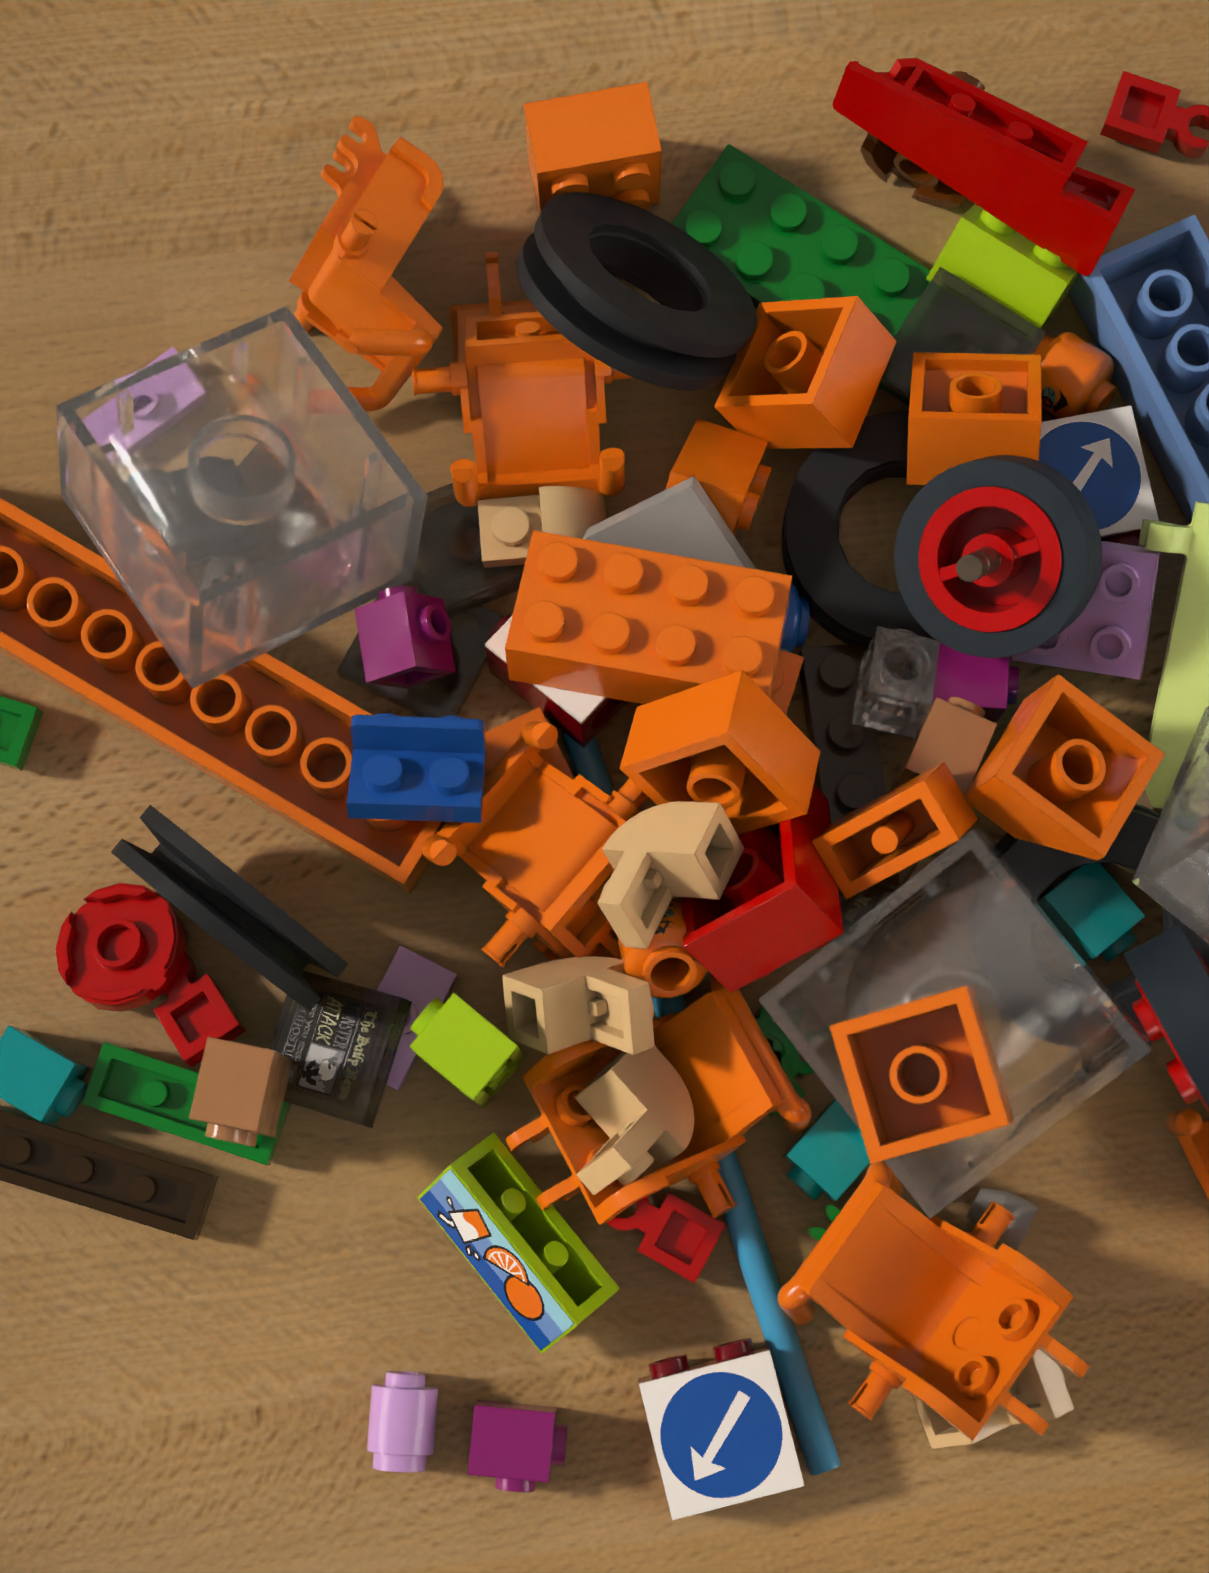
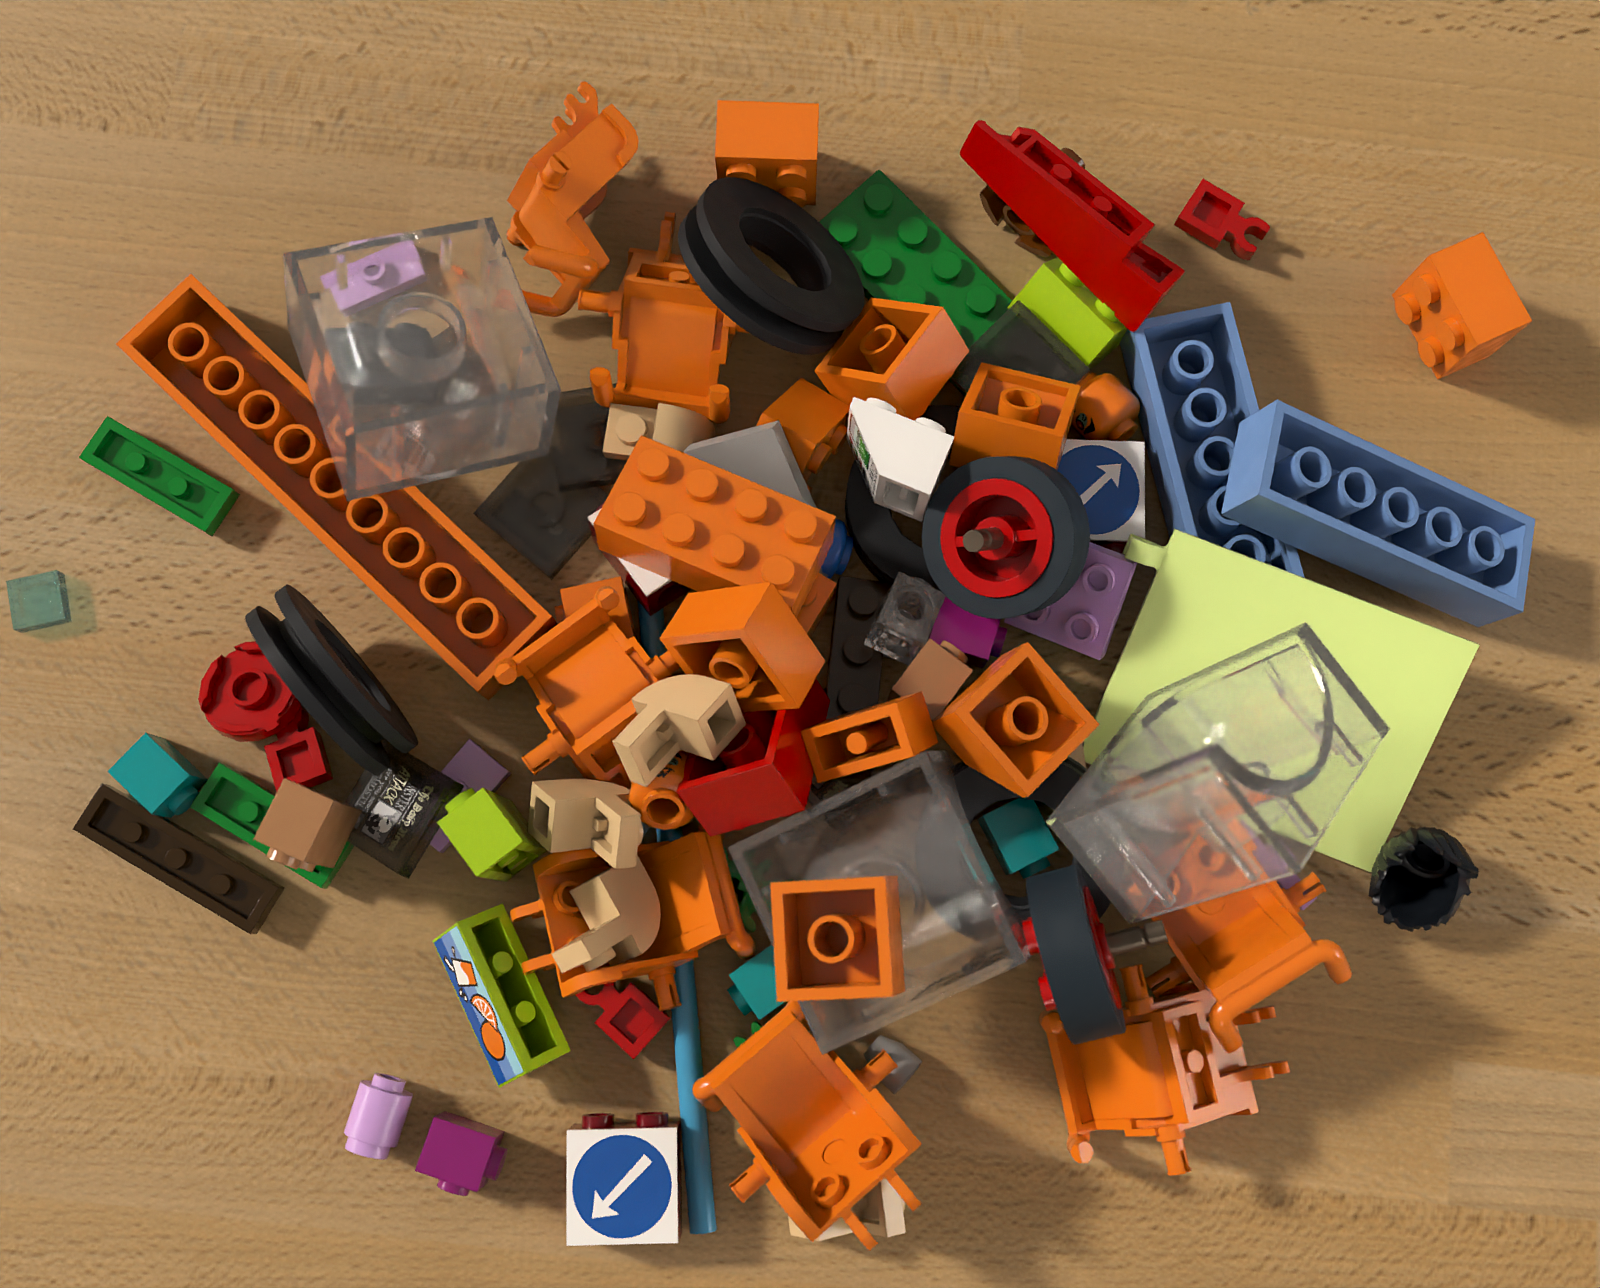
camera: 10 degrees right, 0 degrees up
(404, 638) = (527, 498): magenta brick -> none
(417, 768) = (506, 603): blue bracket -> none
(844, 487) = (897, 455): none -> white slope

